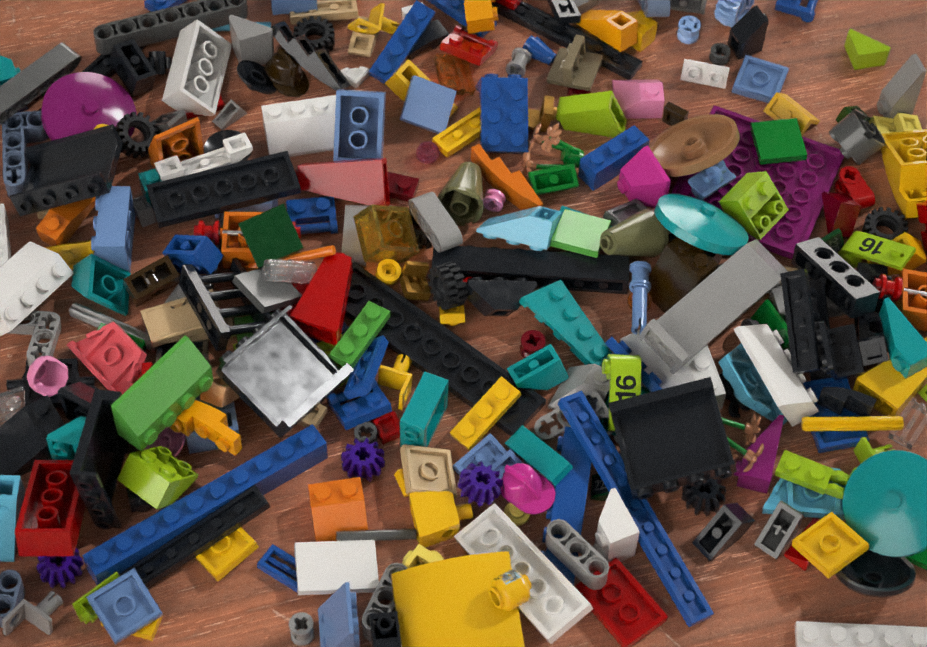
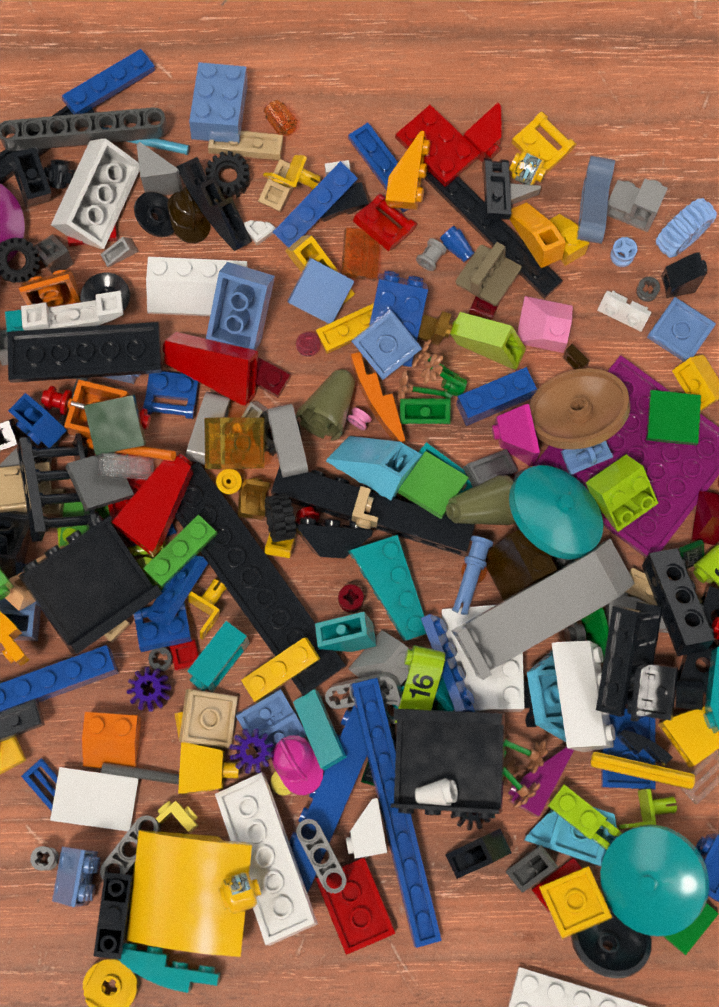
camera: 15 degrees right, 20 degrees up
(502, 132) = (386, 344): none -> medium blue tile
(524, 265) = (364, 505): none -> tan bracket
(672, 464) = (437, 793): none -> white cone

